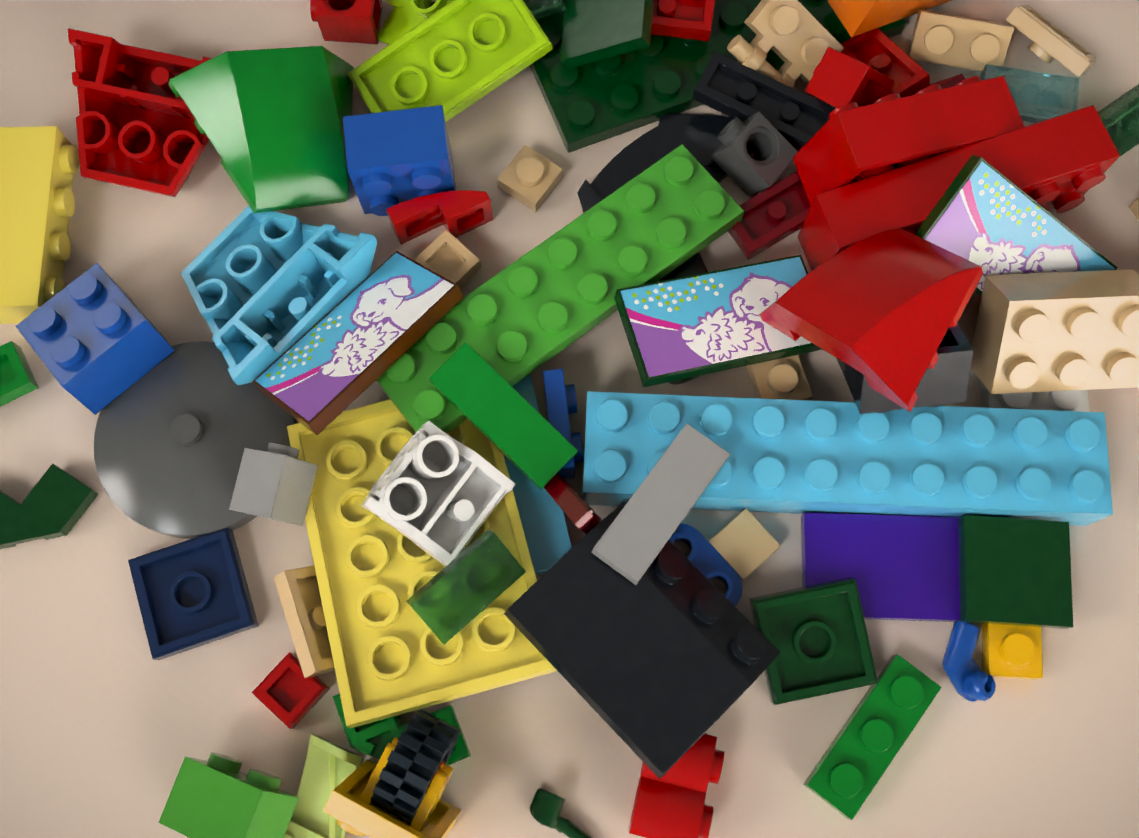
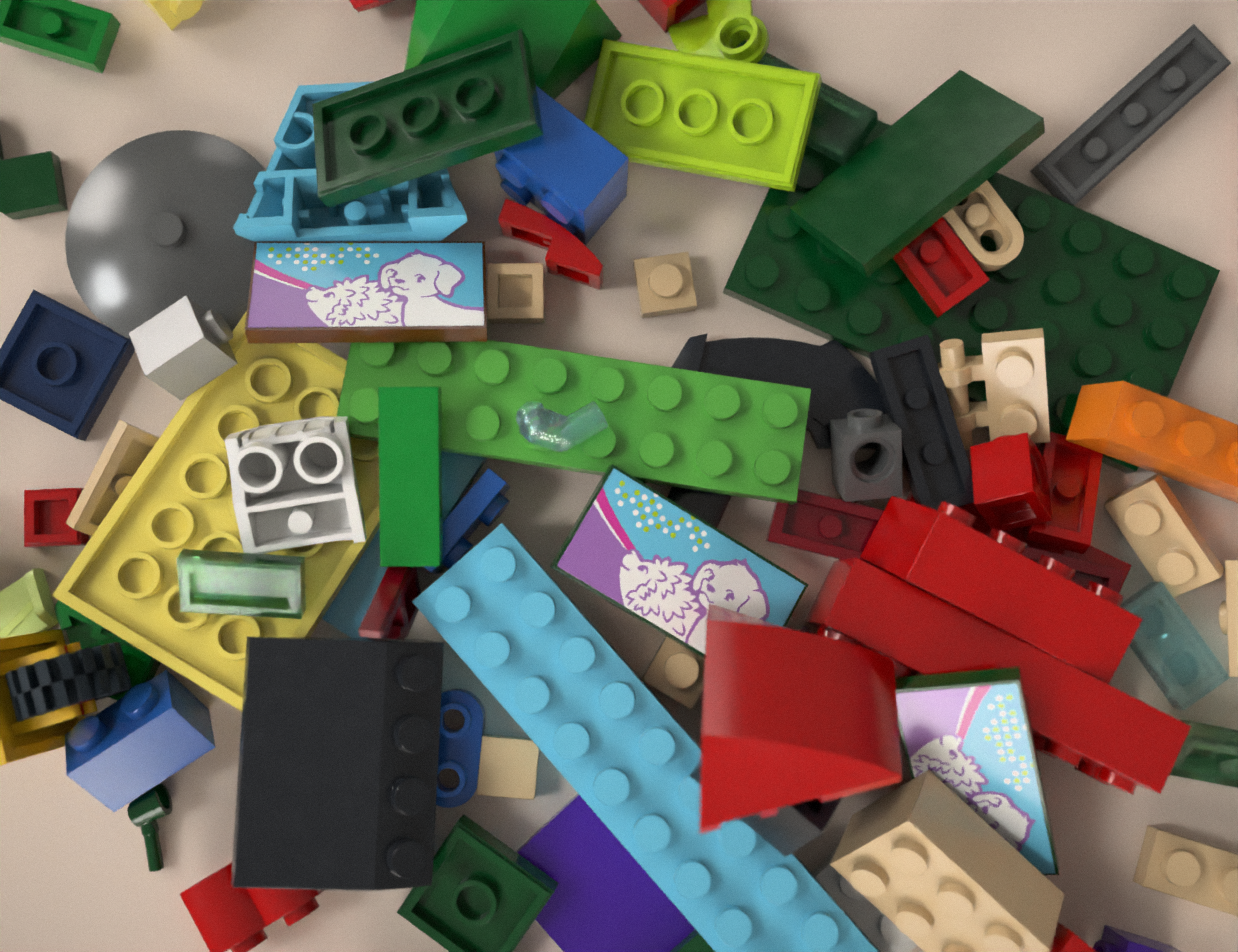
camera: 40 degrees right, 10 degrees up
(94, 339) = (171, 78): blue brick -> none
(292, 201) = (426, 119): none -> dark green tile
(499, 765) = (138, 741): none -> brick
(563, 300) = (556, 430): none -> clear light blue arm
(660, 504) = (451, 680): light grey tile -> none

